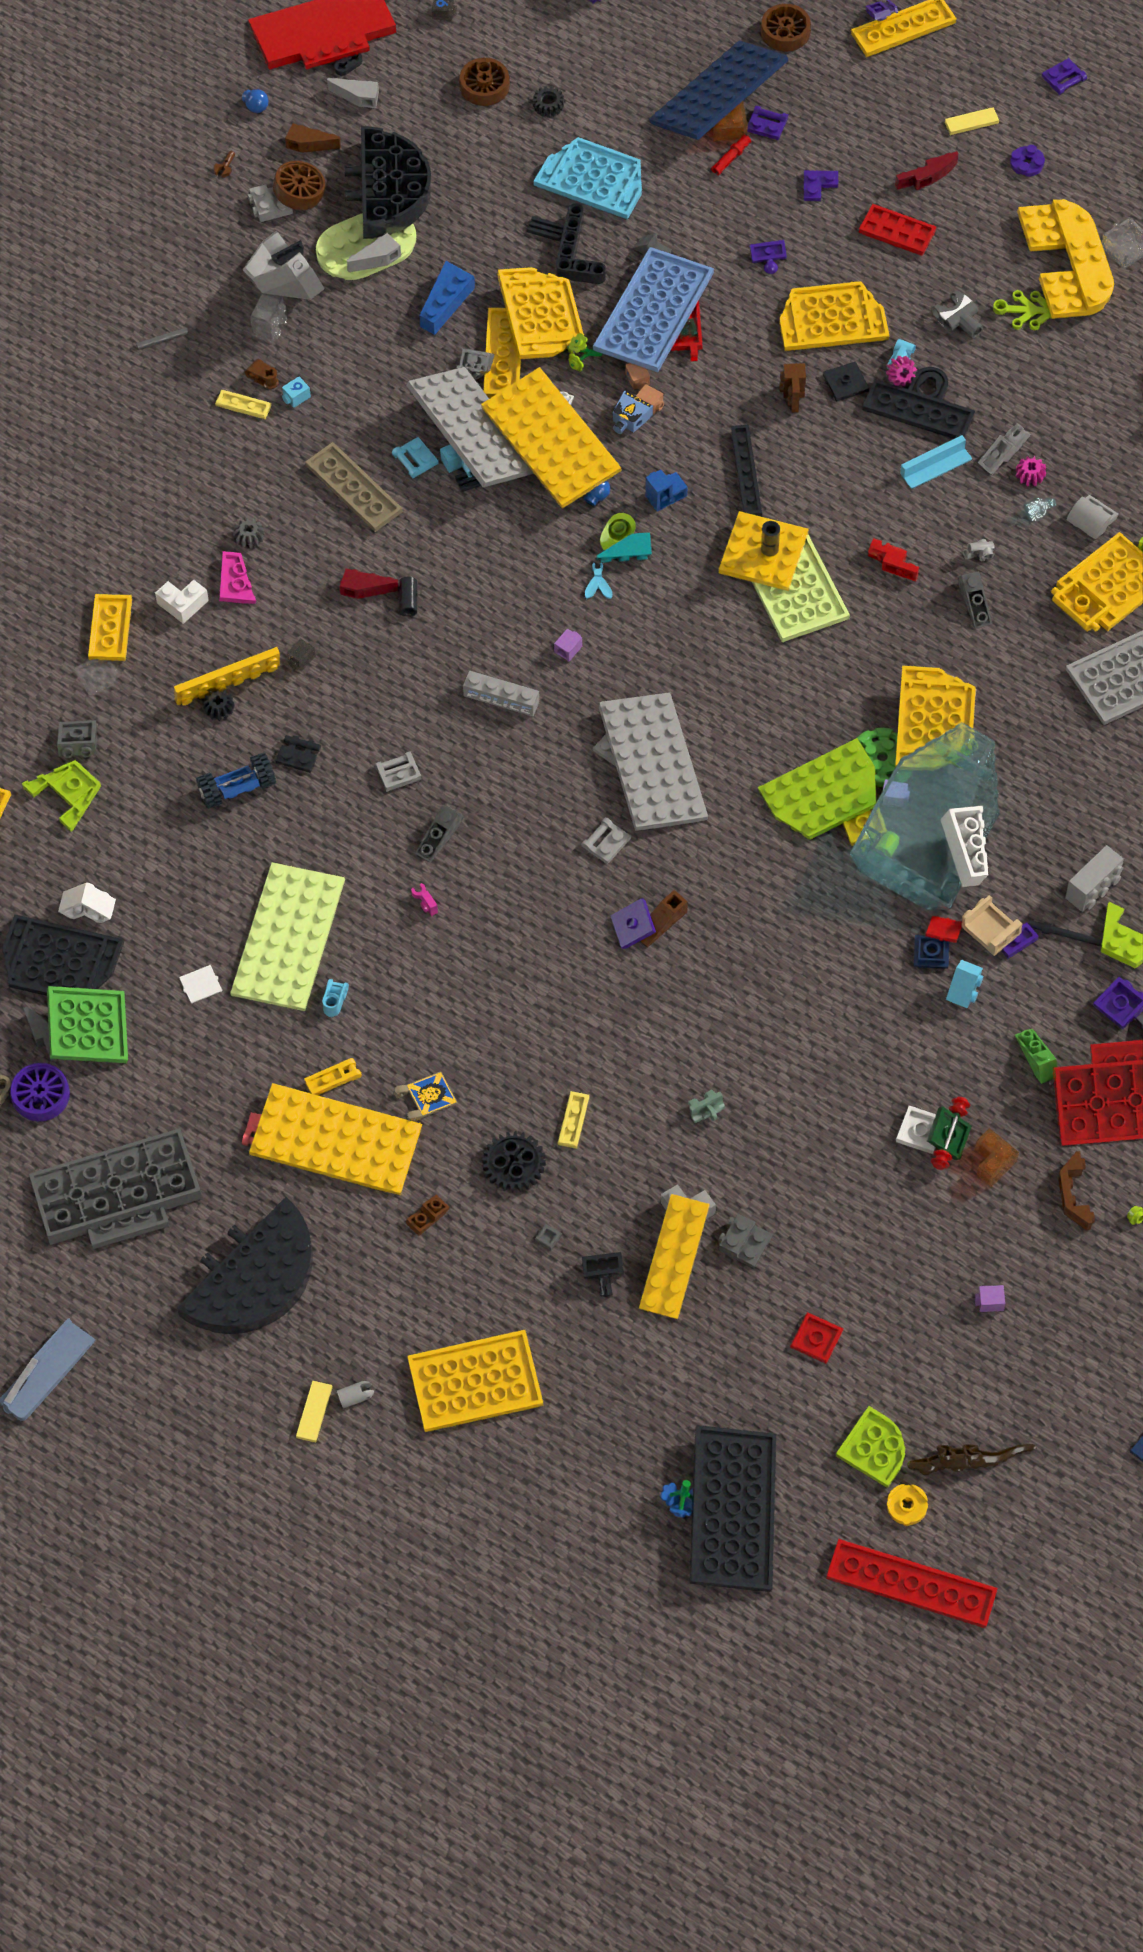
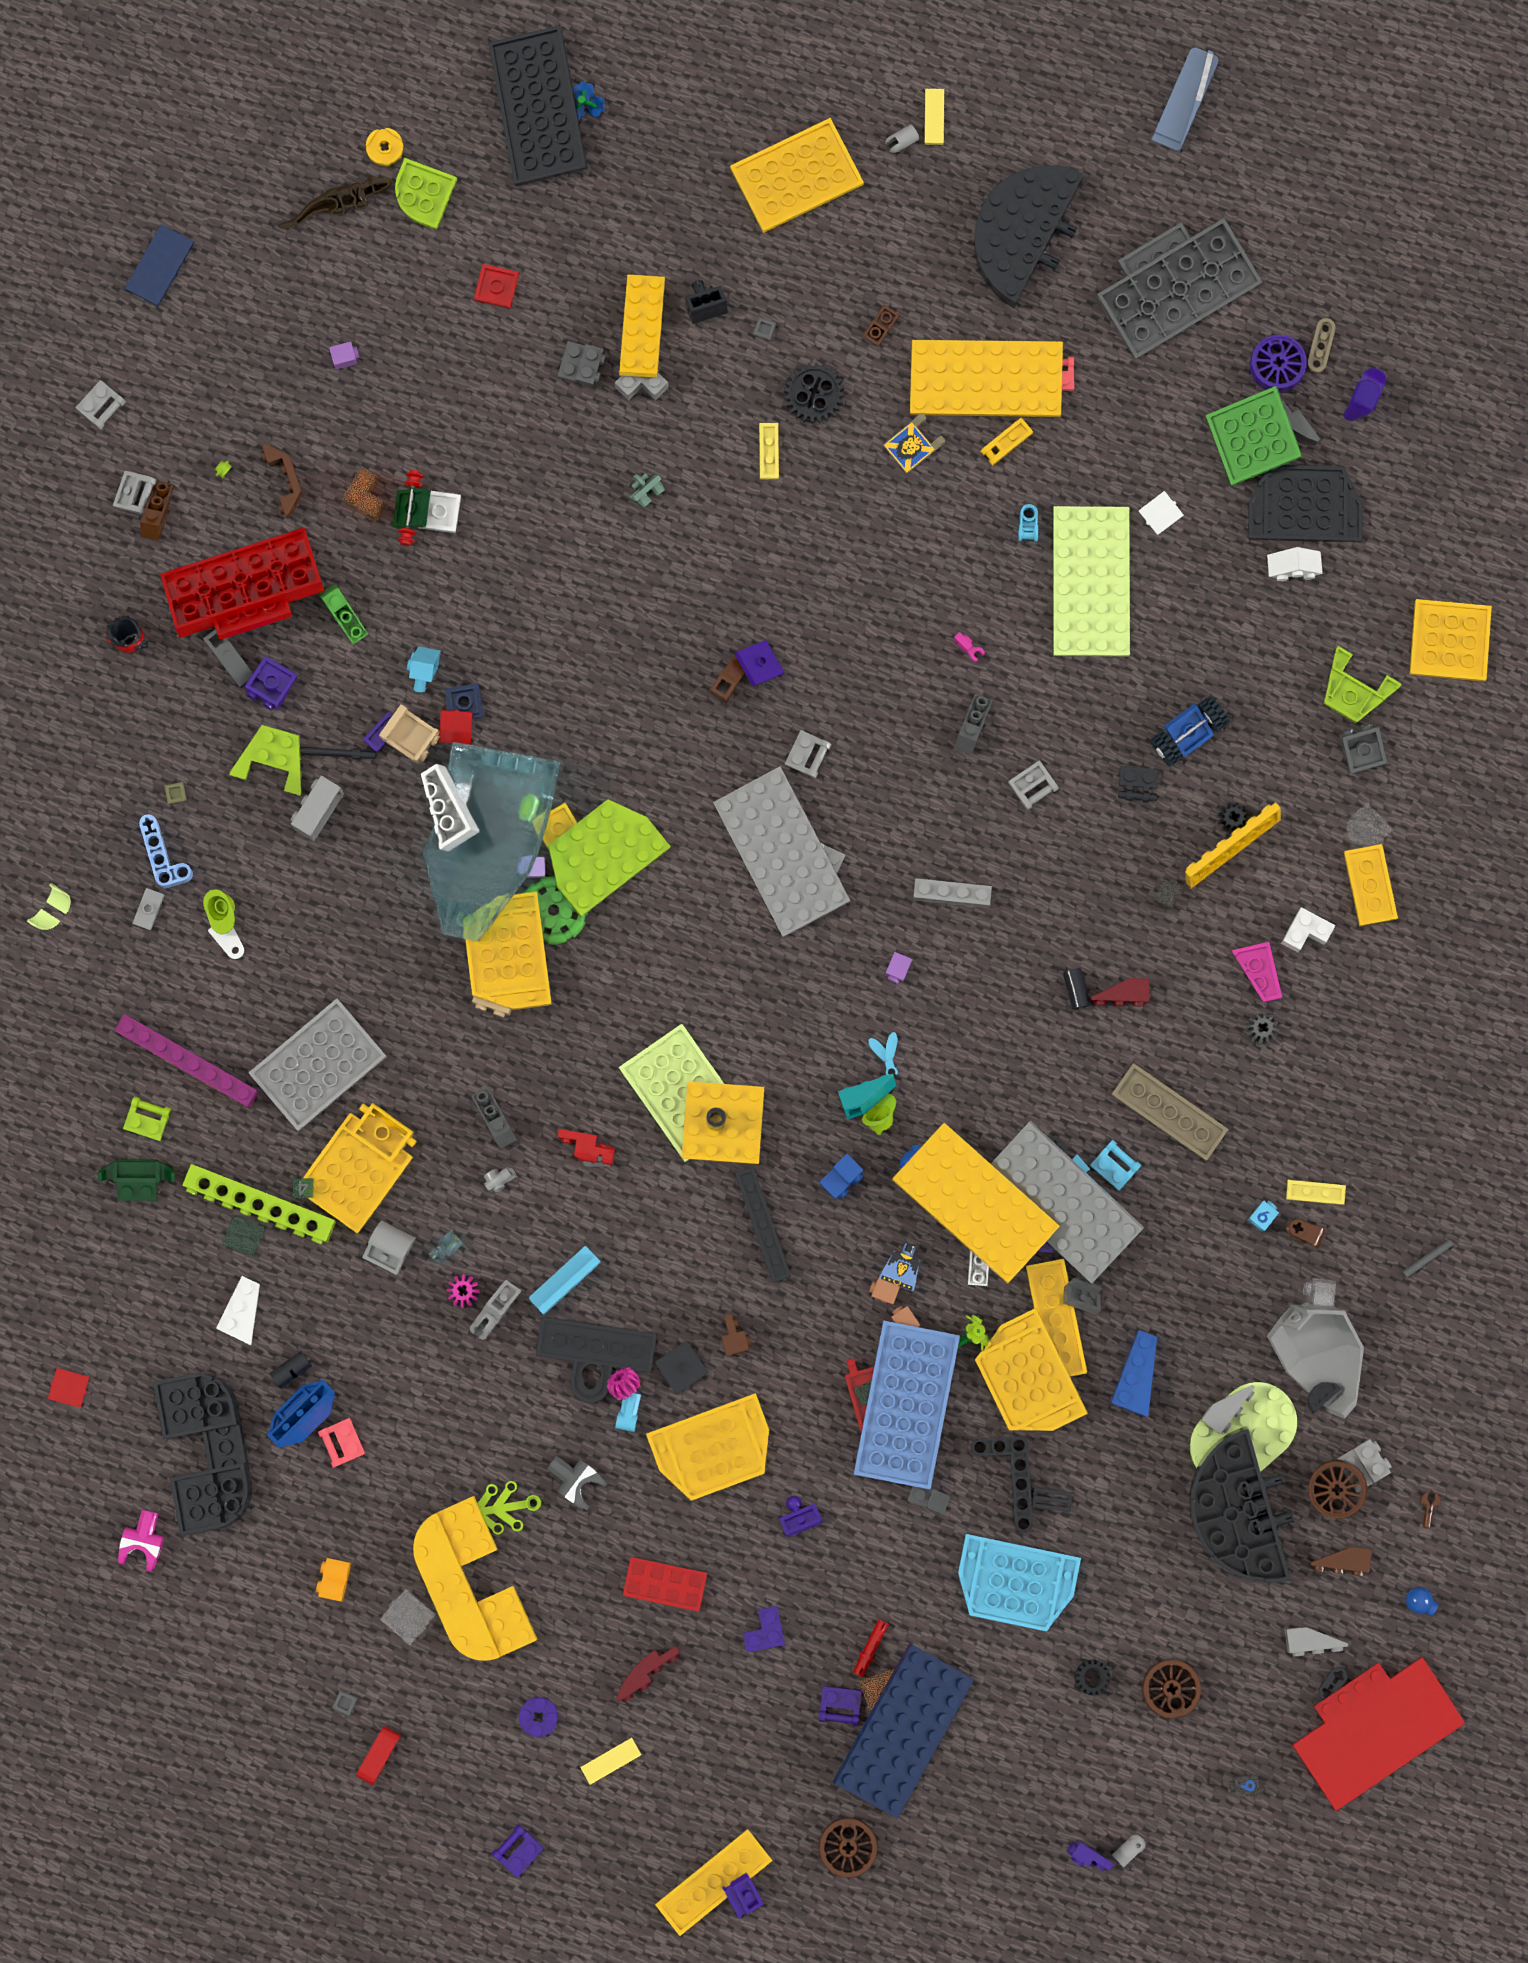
camera: 165 degrees right, 20 degrees up
(912, 1583) = (367, 76): red plate -> none

